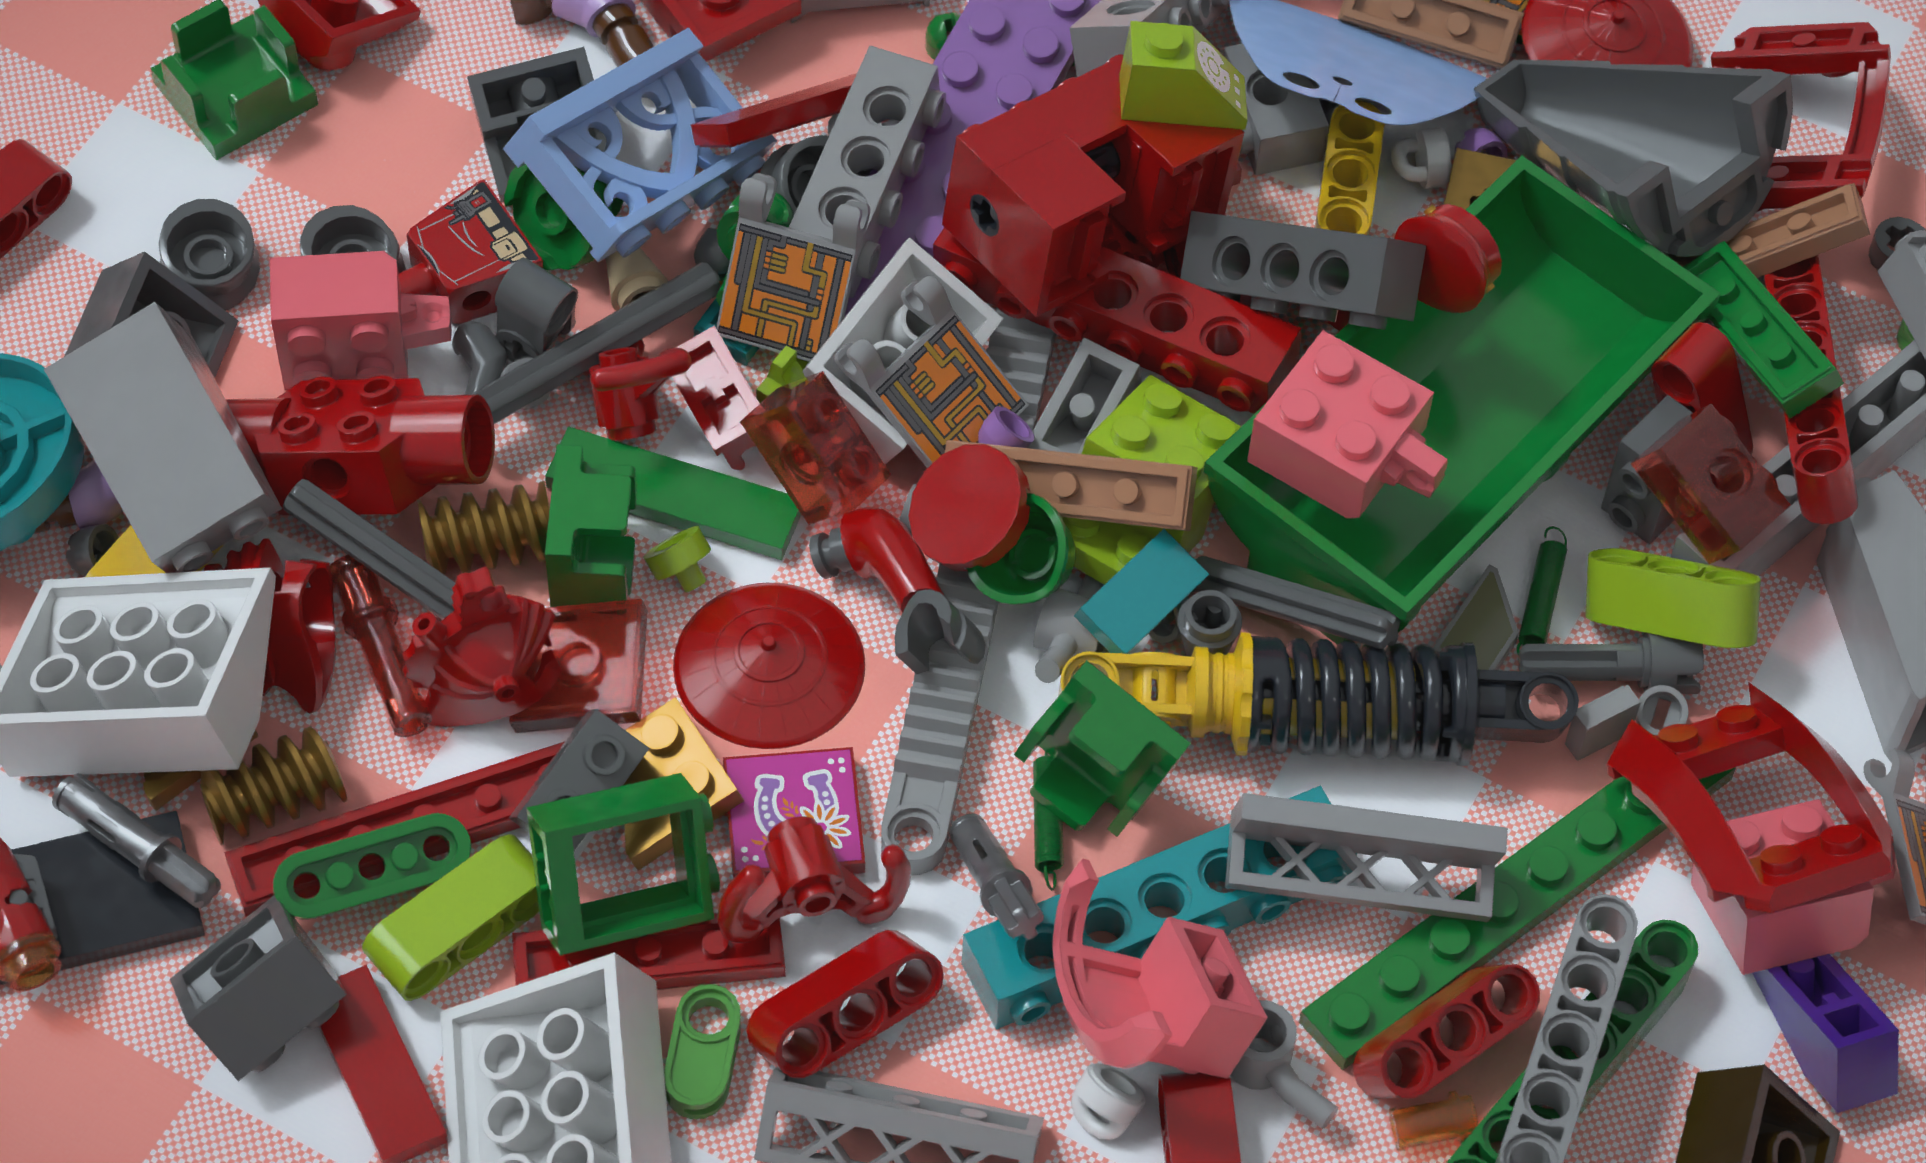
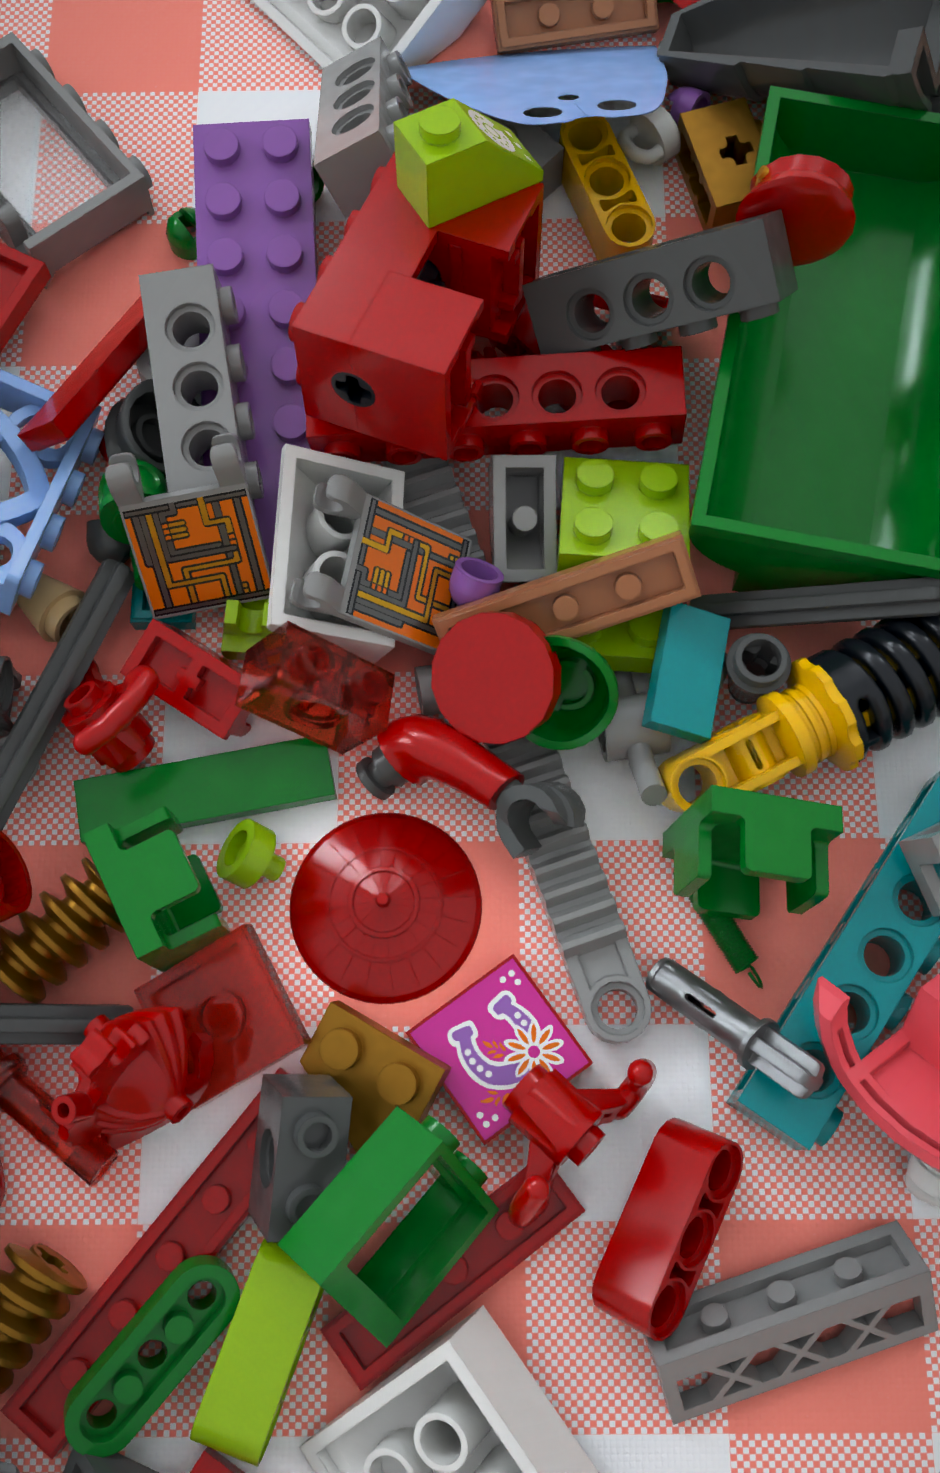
camera: 25 degrees left, 15 degrees up
(701, 1064) = (567, 1353): bright green piece -> none
(1346, 429) = (814, 426): coral hinge -> none

